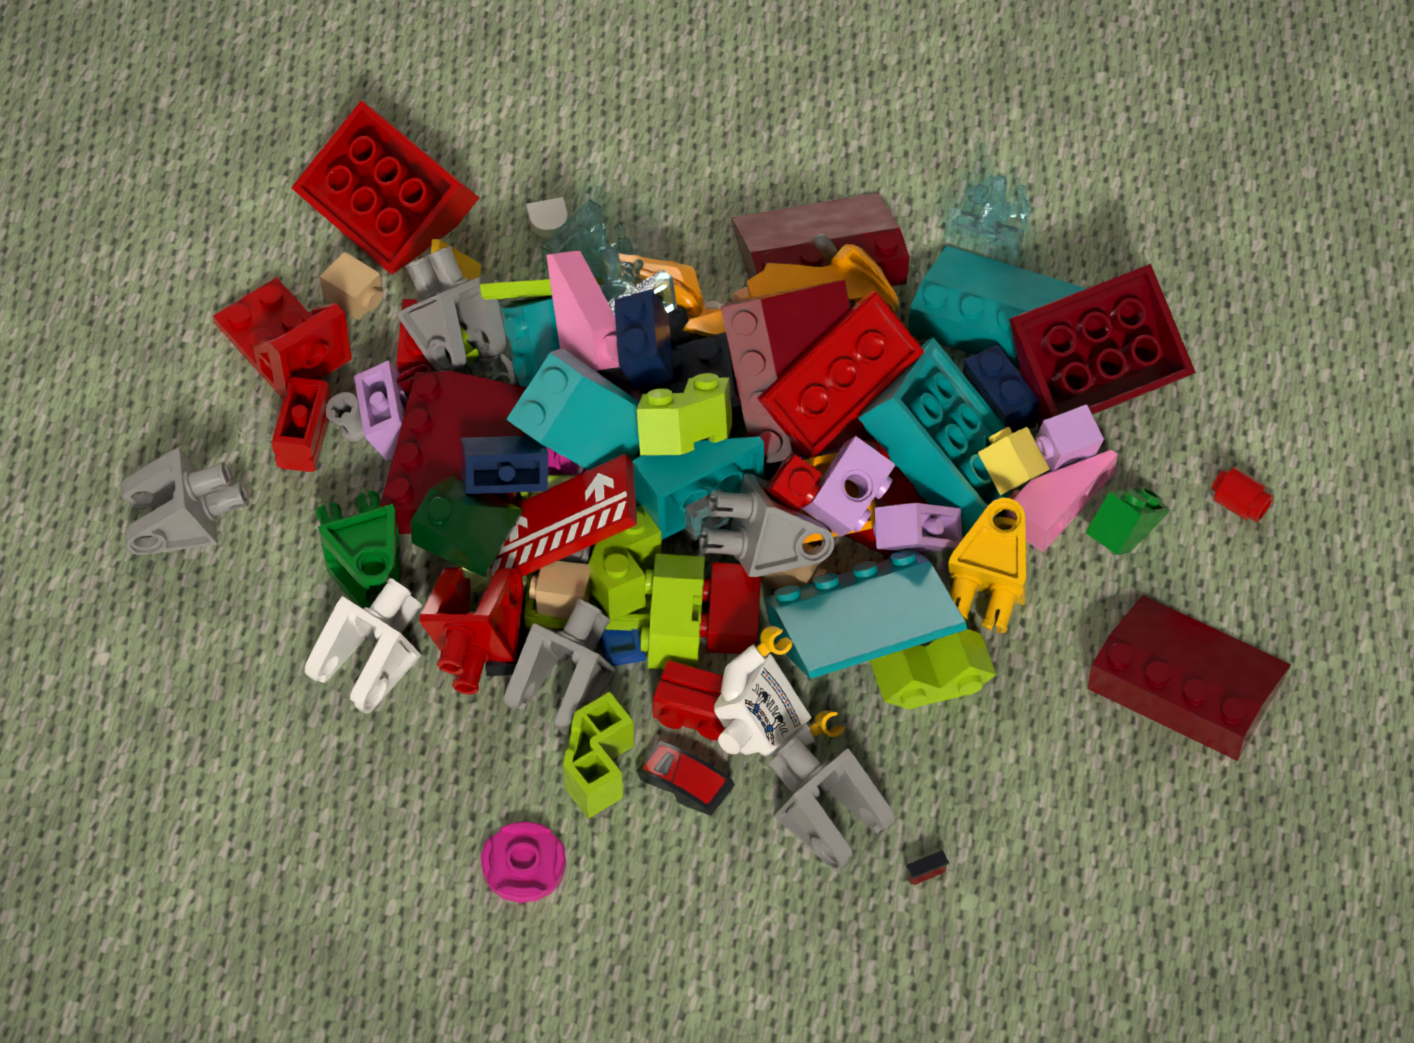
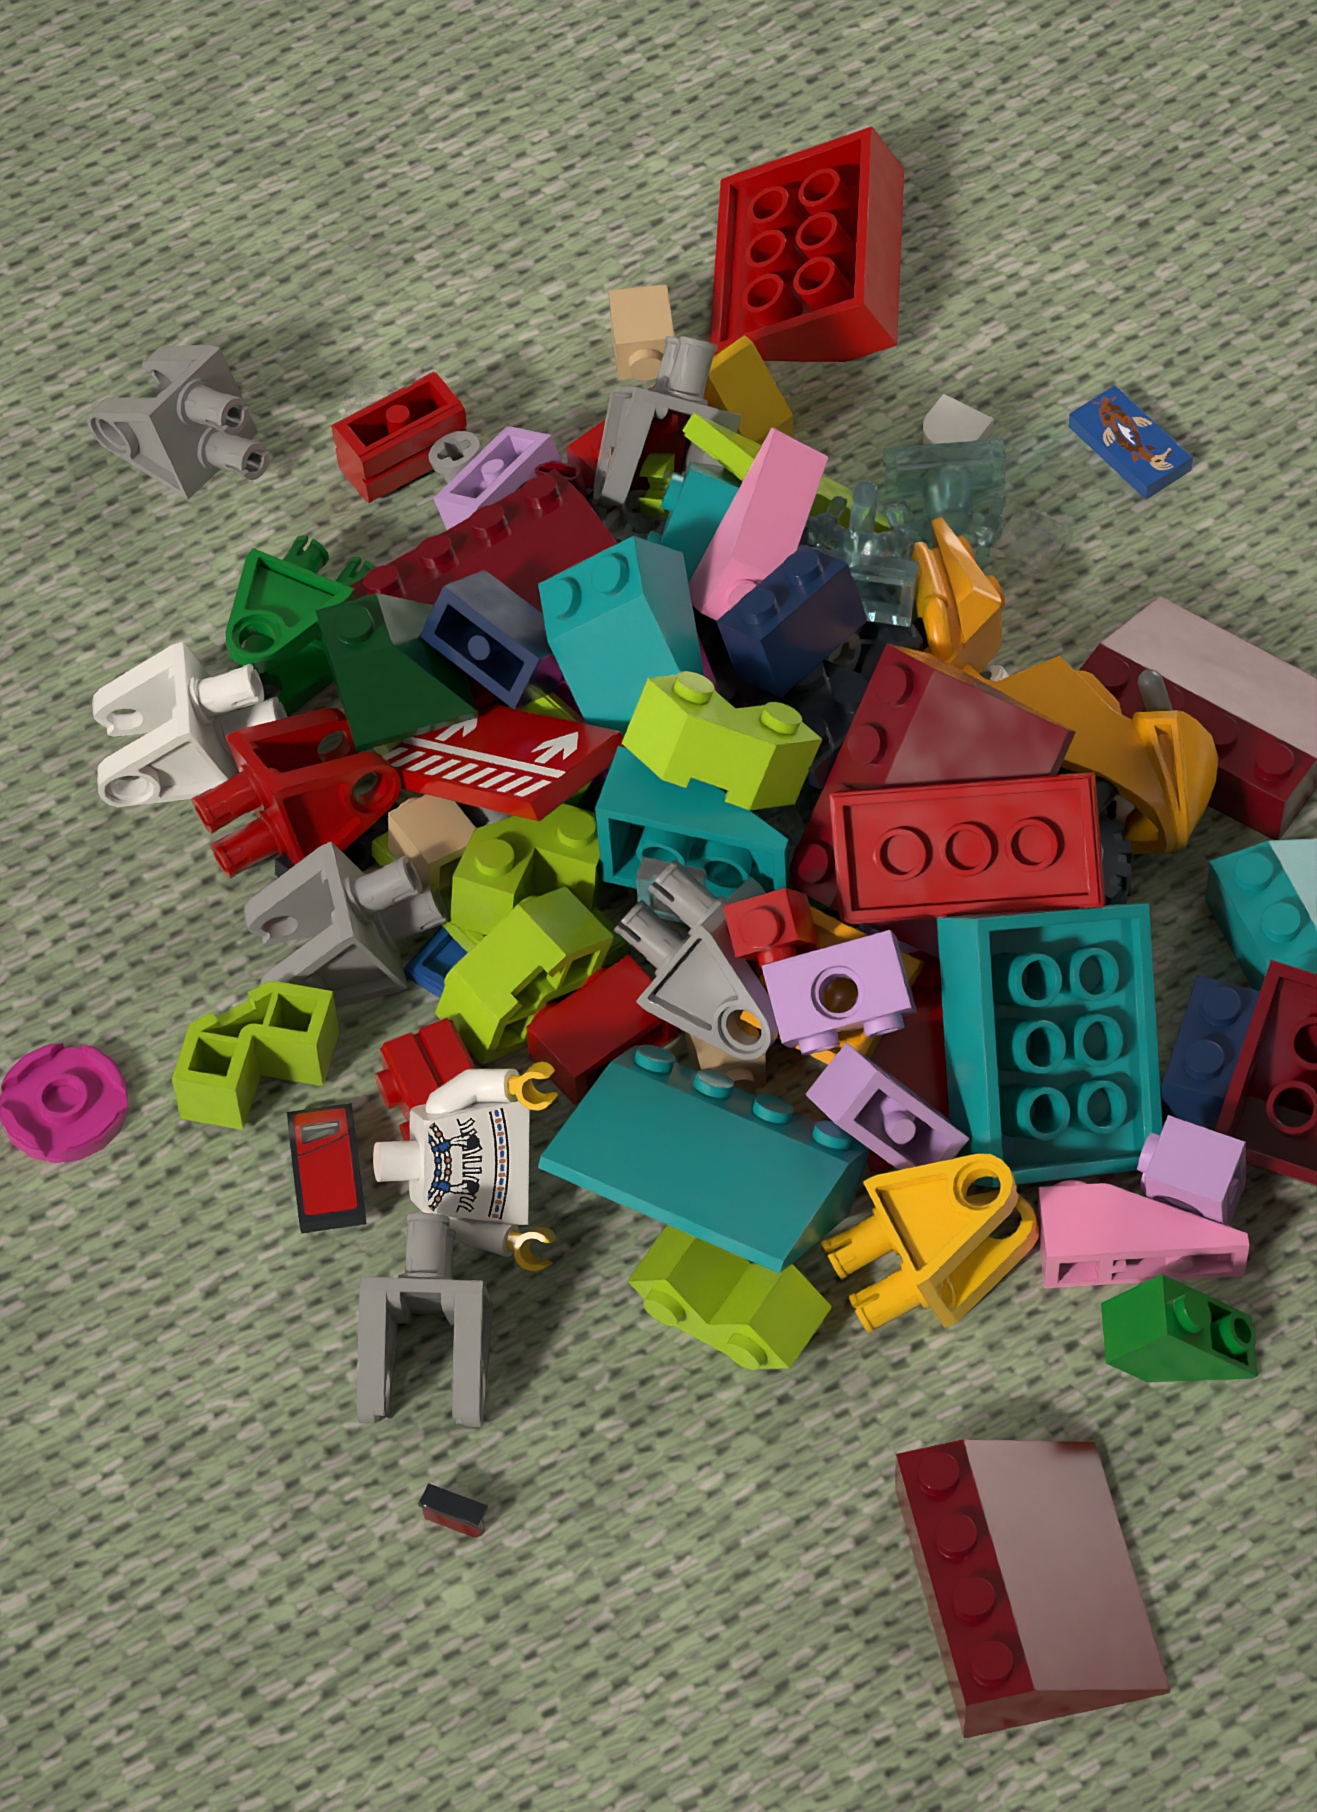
camera: 50 degrees right, 0 degrees up
(284, 337) = (506, 331): red bracket -> none
(633, 160) = (1130, 442): none -> tile
(1012, 459) = (1099, 1135): light yellow brick -> none

